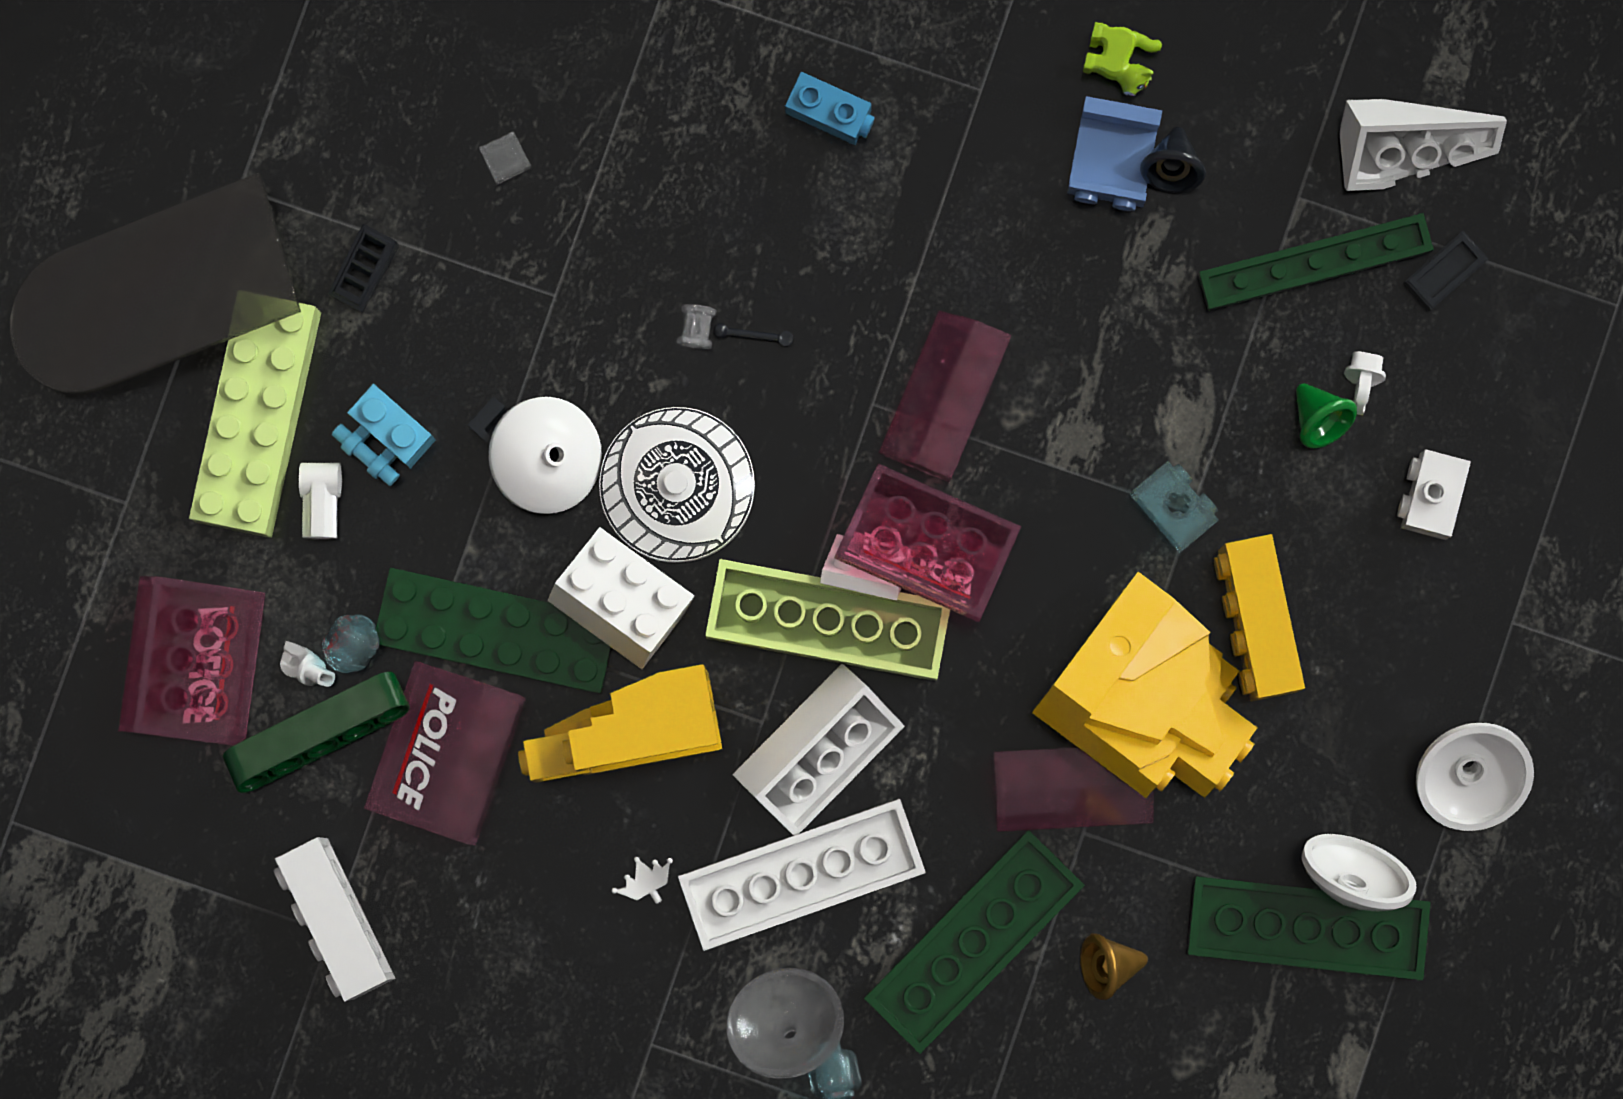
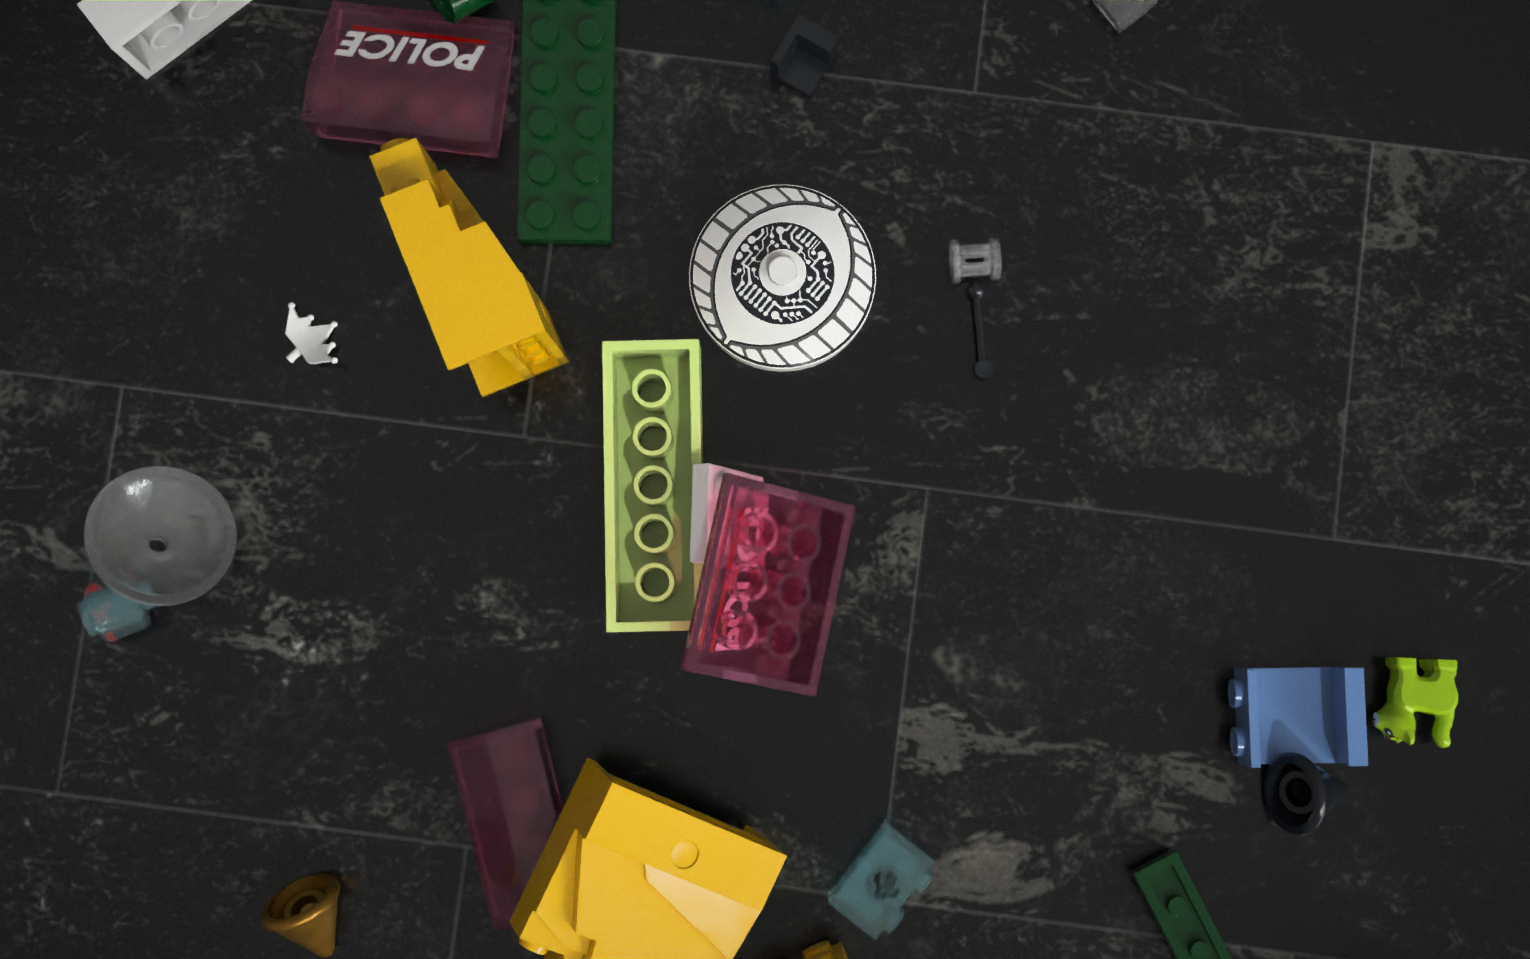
camera: 75 degrees right, 0 degrees up
(522, 459) = (775, 80): white dish -> none
(620, 598) = (631, 234): white brick -> none
(801, 874) = (348, 520): white plate -> none
(818, 750) = (498, 507): white slope -> none
(829, 109) = (1272, 361): dark azure brick -> none
(945, 394) = (958, 572): clear pink slope -> none
(974, 941) = (306, 742): dark green plate -> none

